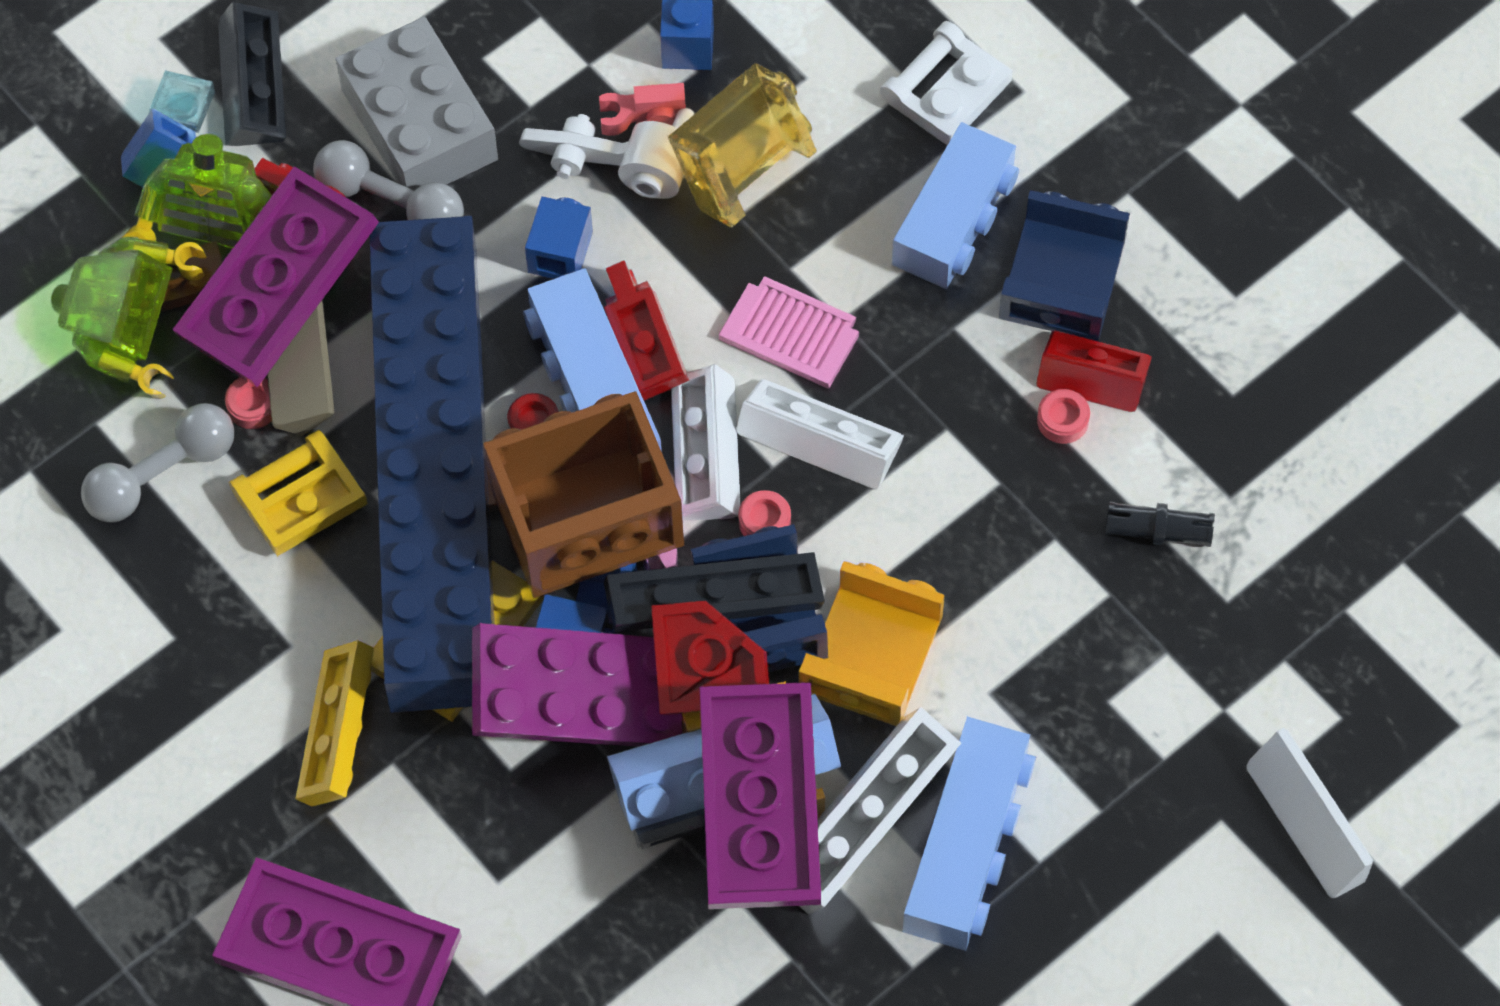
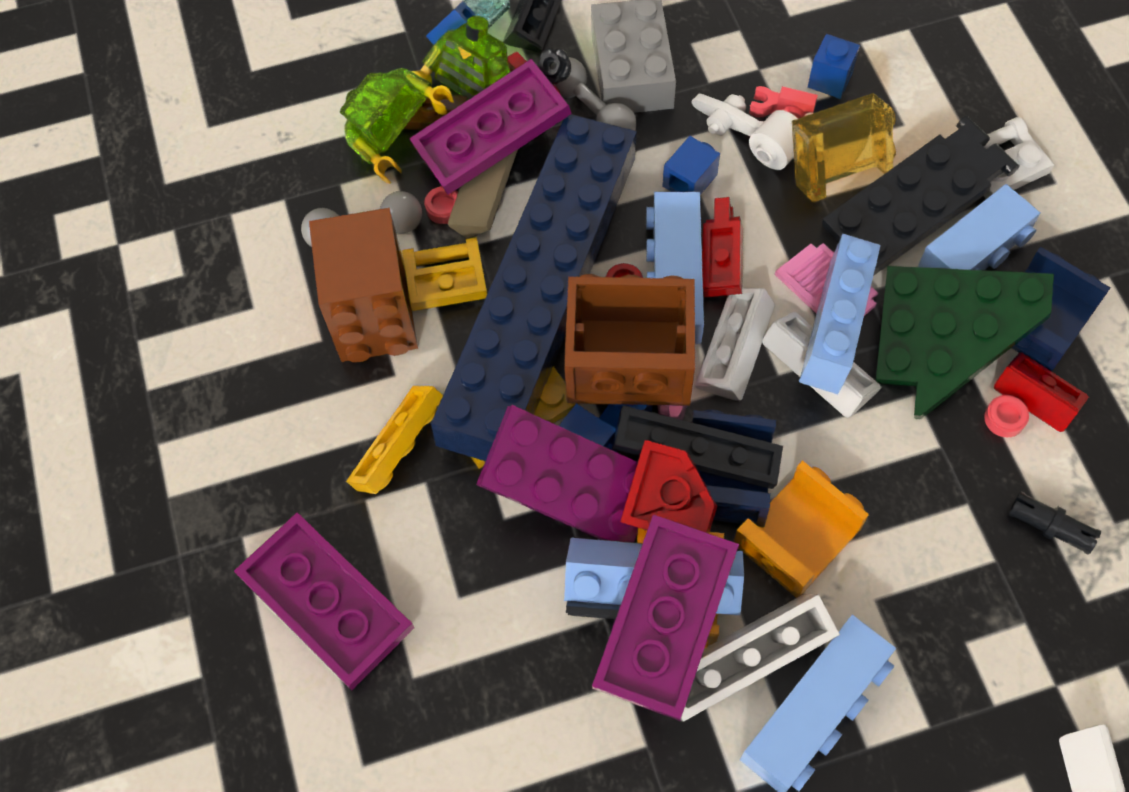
camera: 25 degrees right, 0 degrees up
(217, 546) = (362, 285): none -> dark orange container
(334, 154) = (562, 62): none -> black plate
(763, 510) = (758, 402): coral tile -> none
(820, 363) = (840, 314): none -> light blue brick
(859, 174) = (922, 192): none -> black hinge
(959, 329) = (953, 324): none -> dark green wing

